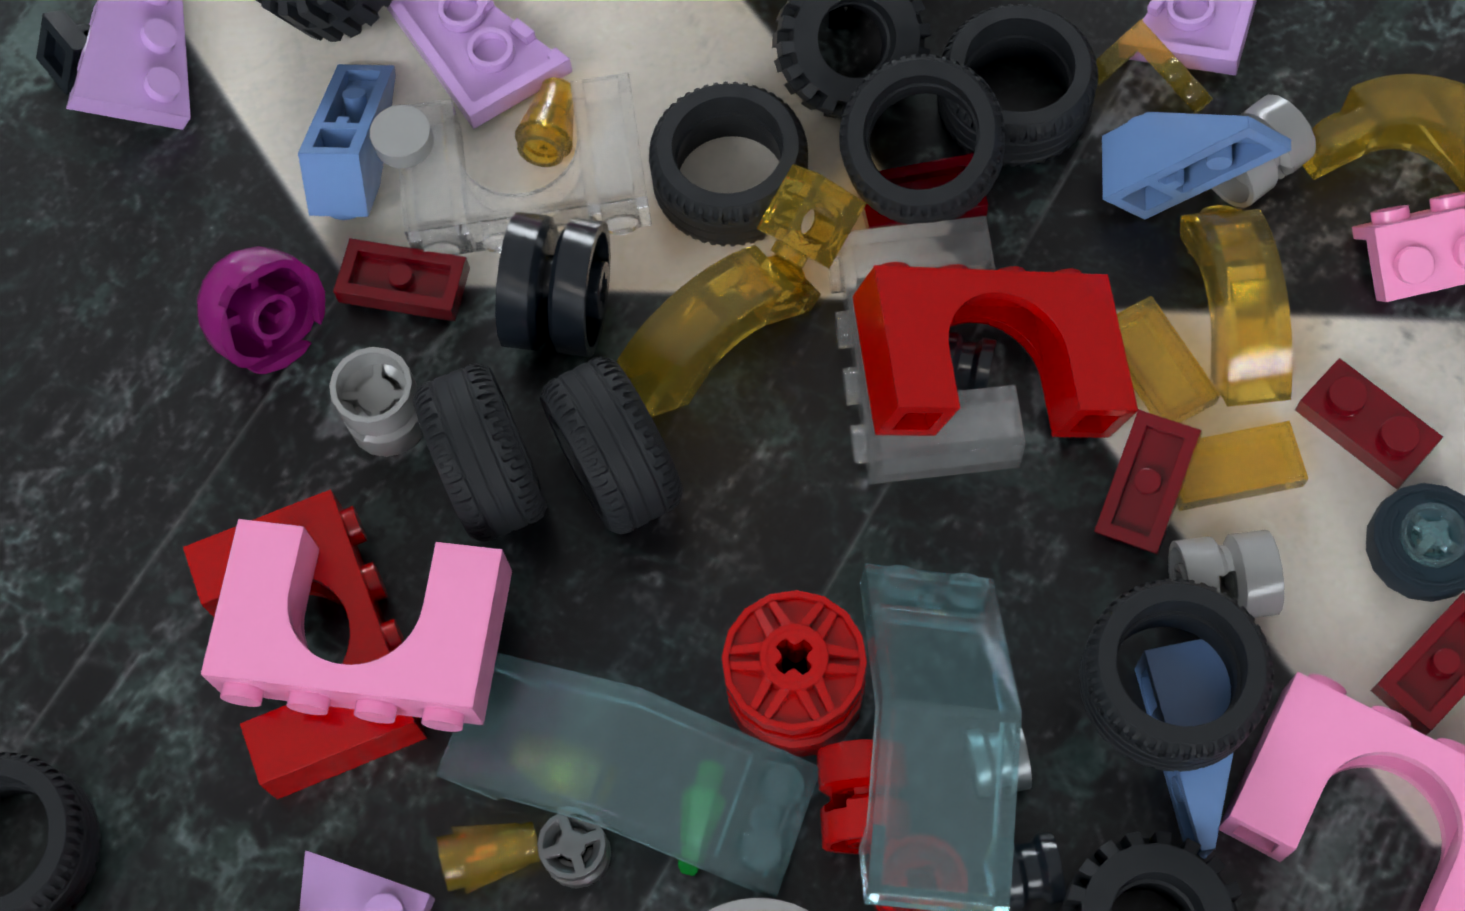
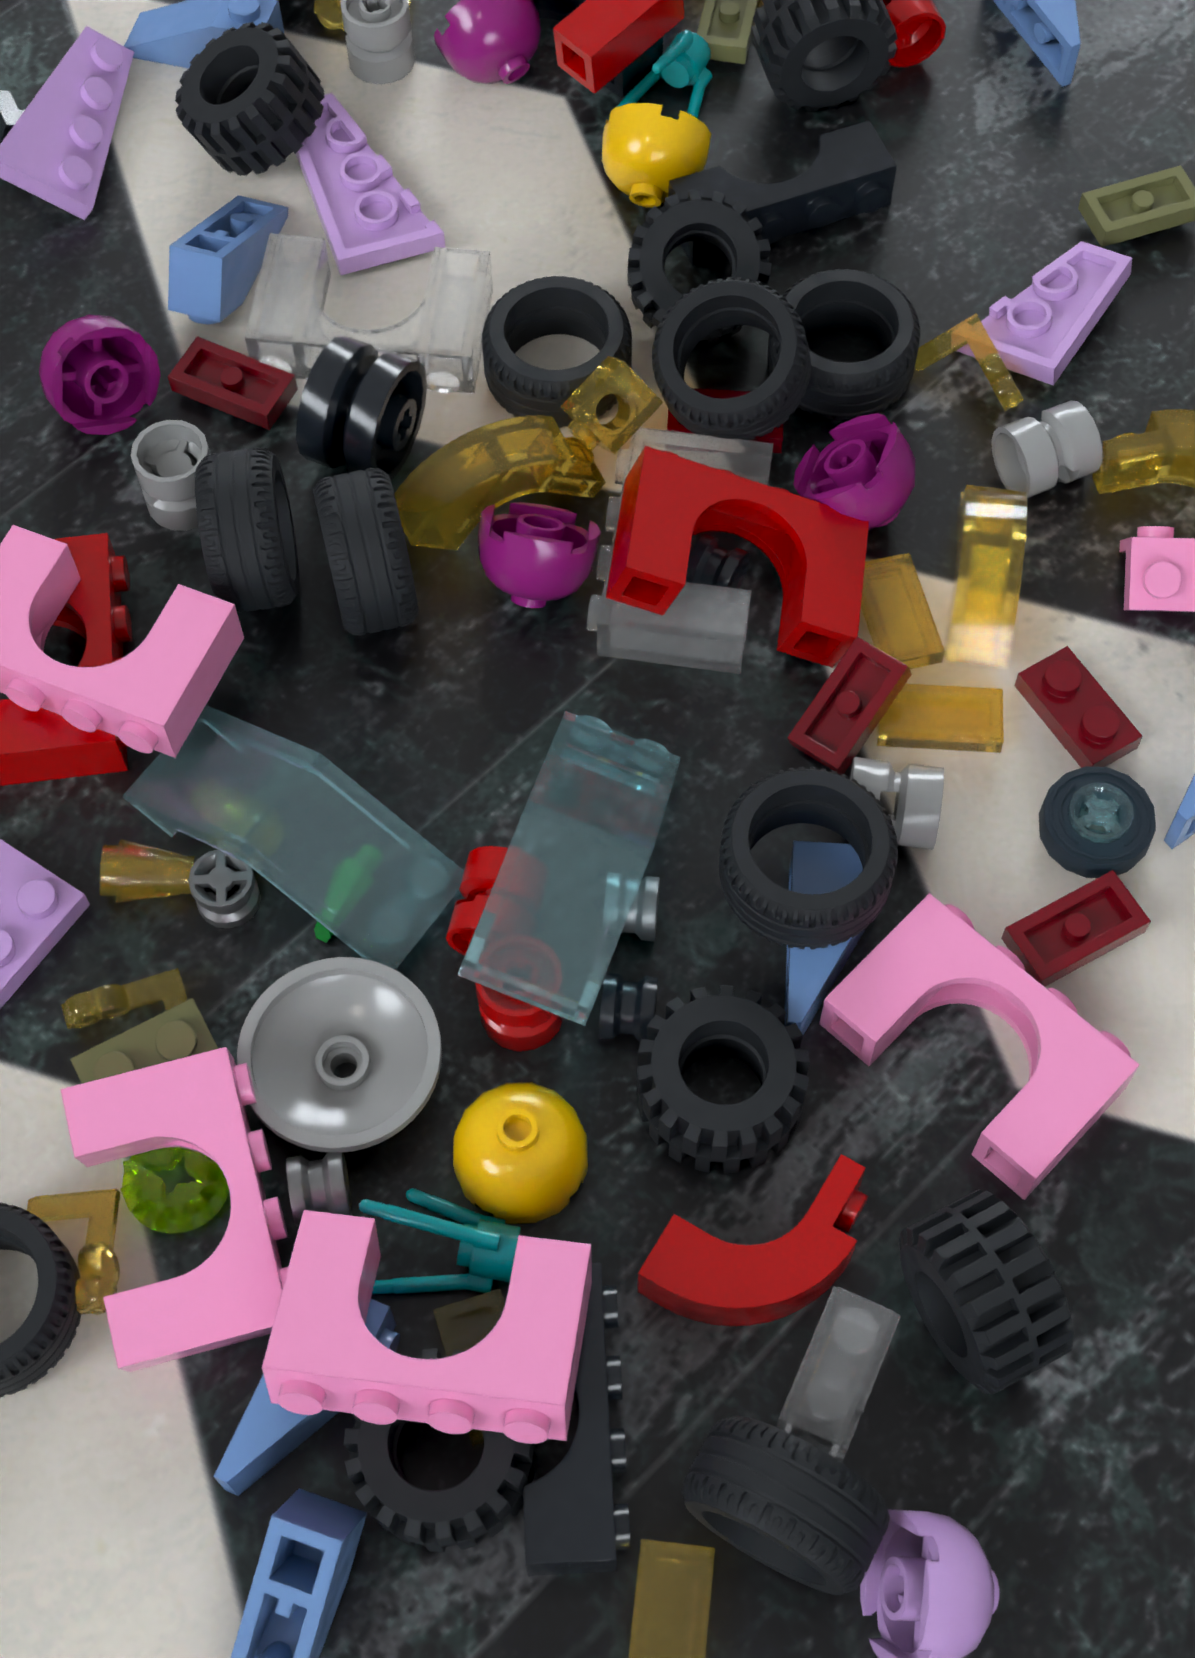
camera: 10 degrees right, 5 degrees down
(401, 136) = (268, 256): light grey tile -> none
(547, 126) = (403, 285): clear yellow cone -> none
(781, 393) = (536, 552): none -> magenta cylinder
(793, 708) = (461, 808): red wheel -> none
(1080, 223) = (861, 472): none -> magenta cylinder
(1175, 156) = (972, 429): medium blue slope -> none

